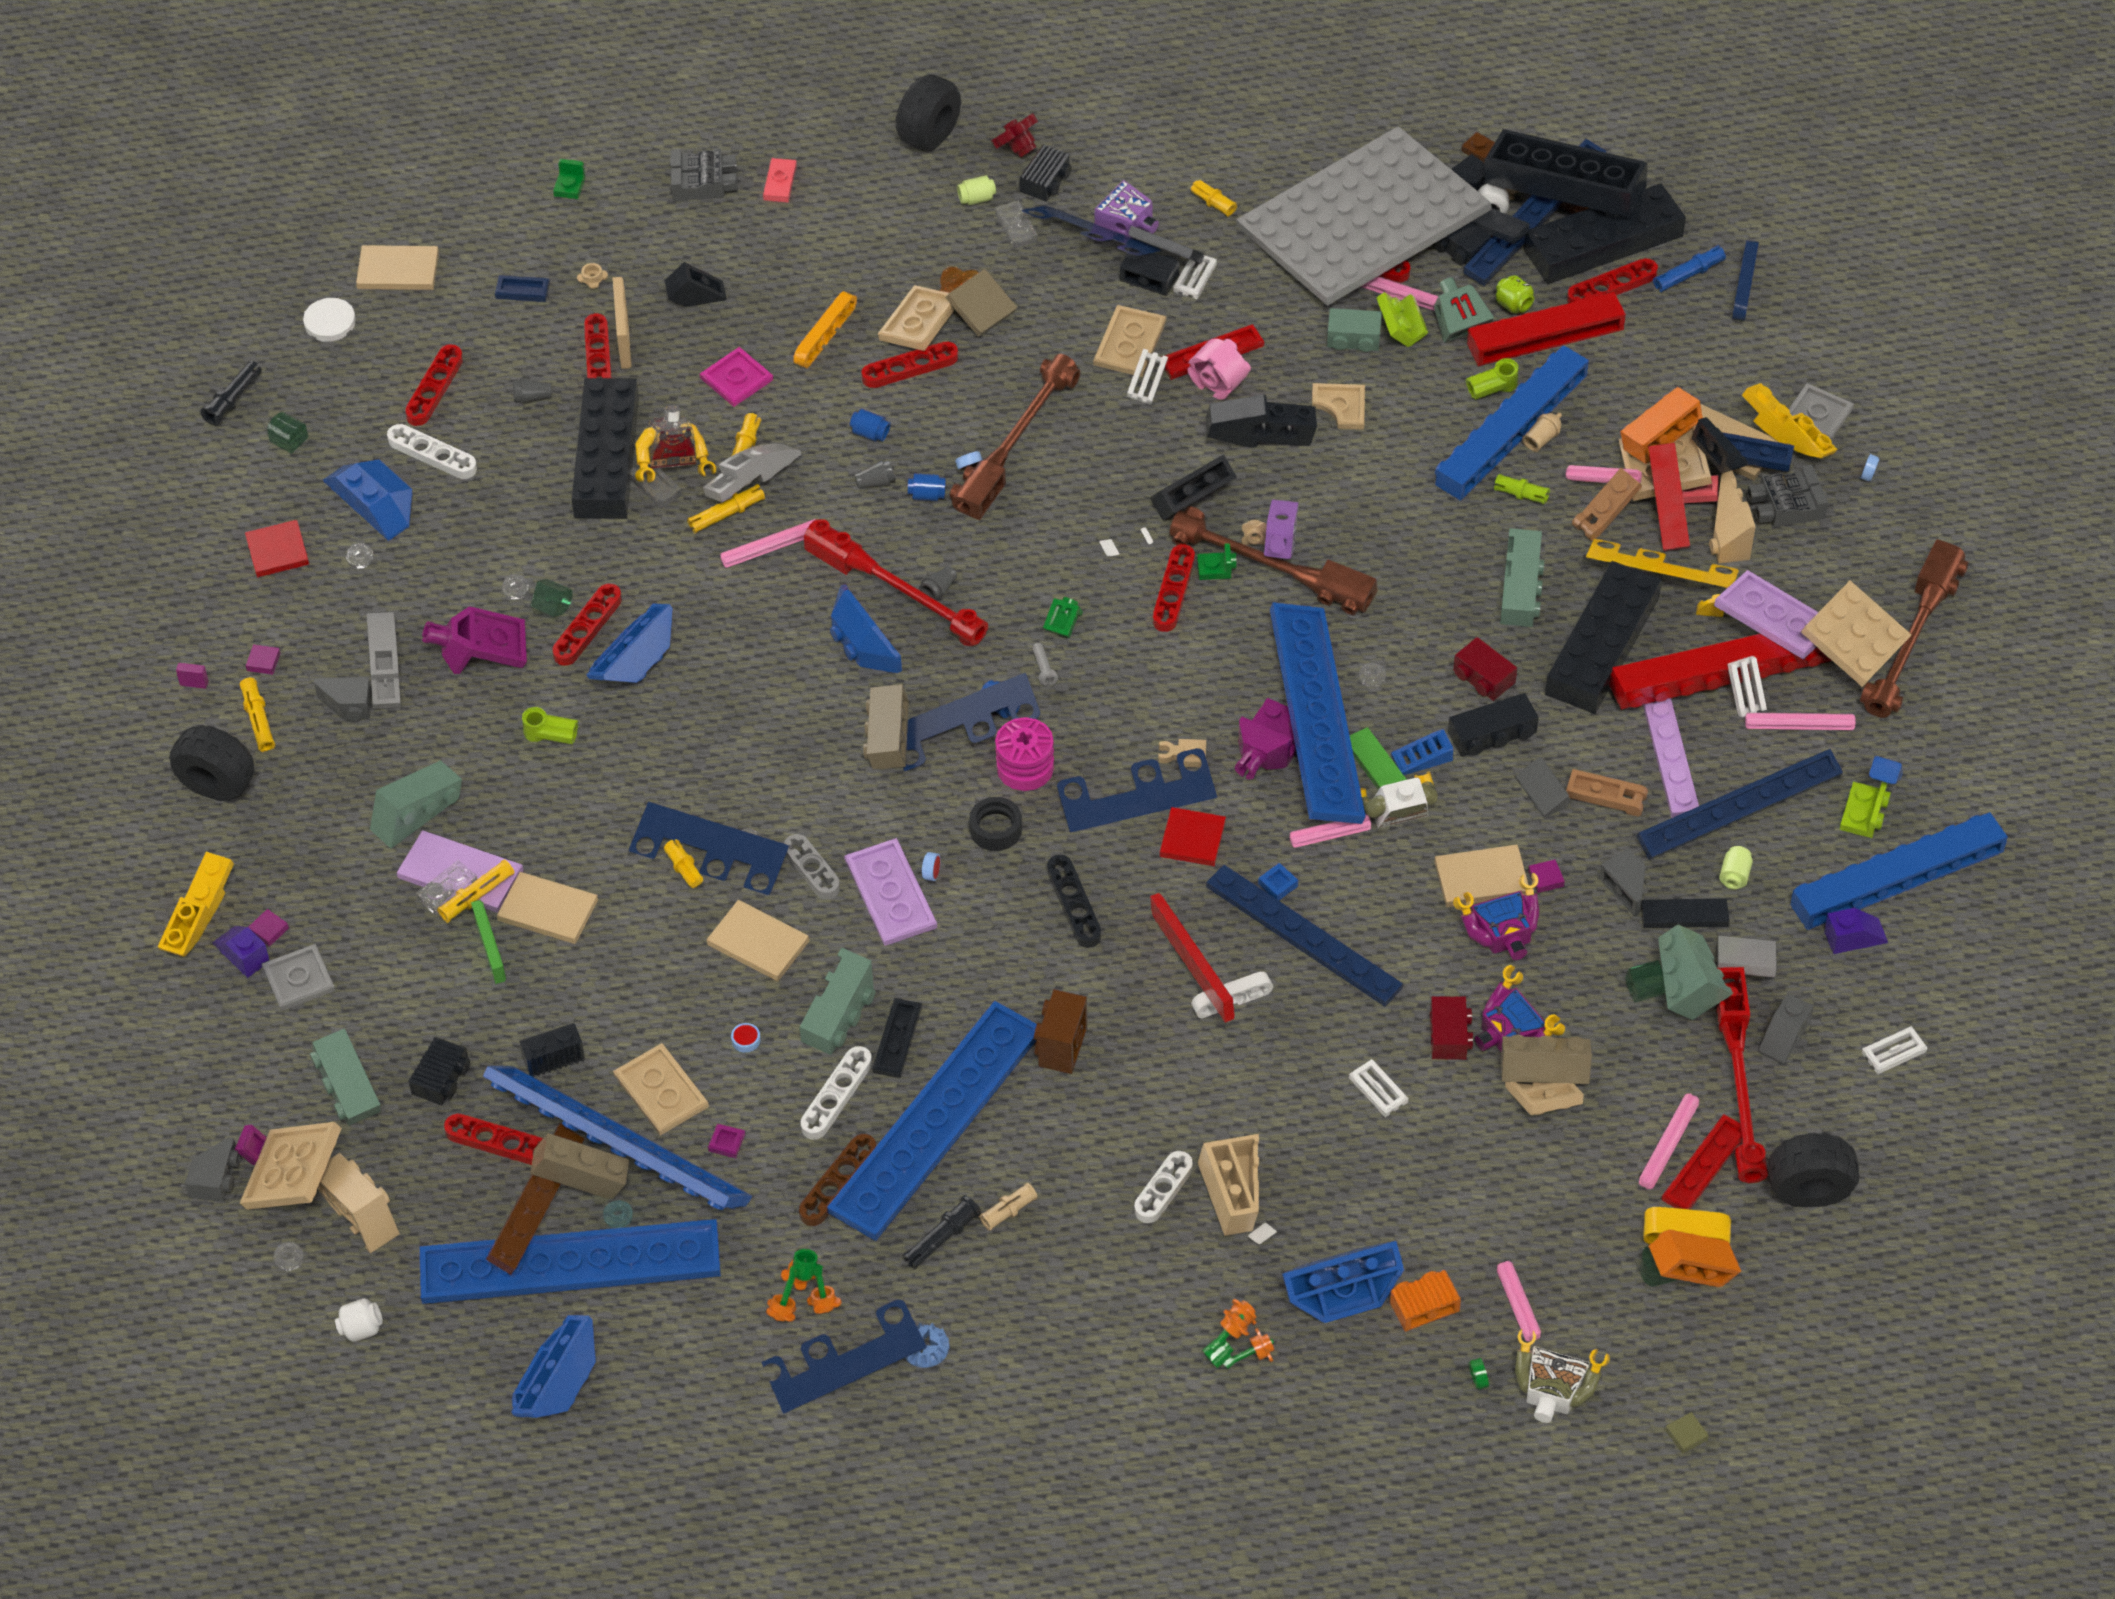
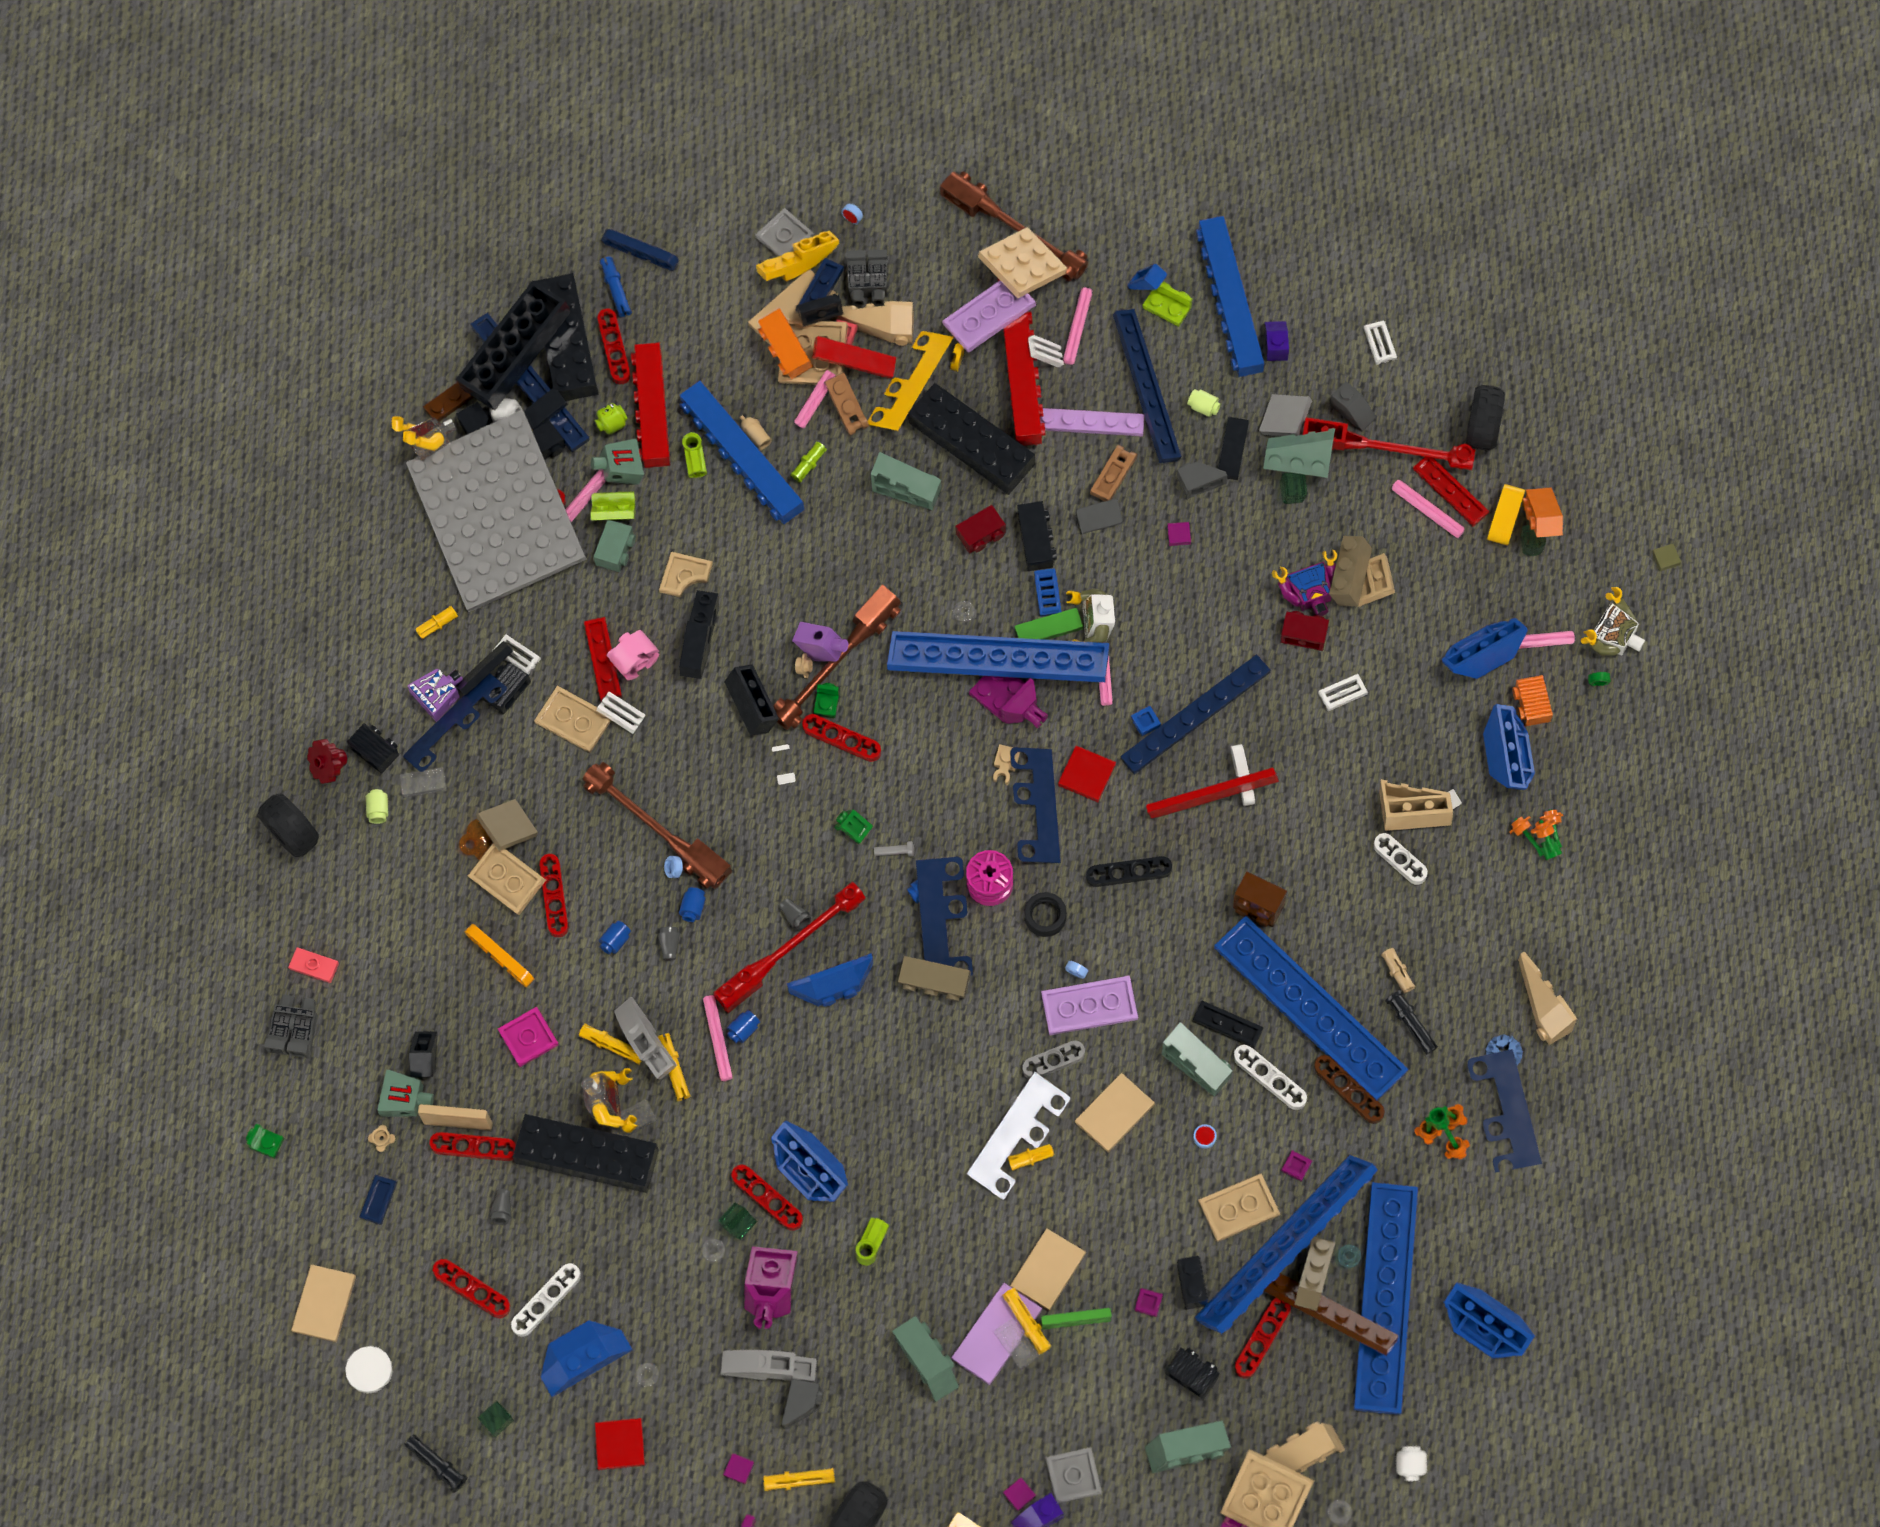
camera: 75 degrees left, 15 degrees up
(523, 1015) = (1148, 1302): none -> magenta tile
(643, 278) = (402, 1096): none -> sand green torso
(787, 560) = (743, 1027): none -> blue brick
(992, 1378) = (1550, 1012): none -> tan wedge
(1429, 131) = (425, 437): none -> torso
(1475, 1227) = (1486, 649): none -> blue wedge
(1480, 872) = (1169, 578): tan tile -> none
(1502, 921) = (1218, 569): torso -> none

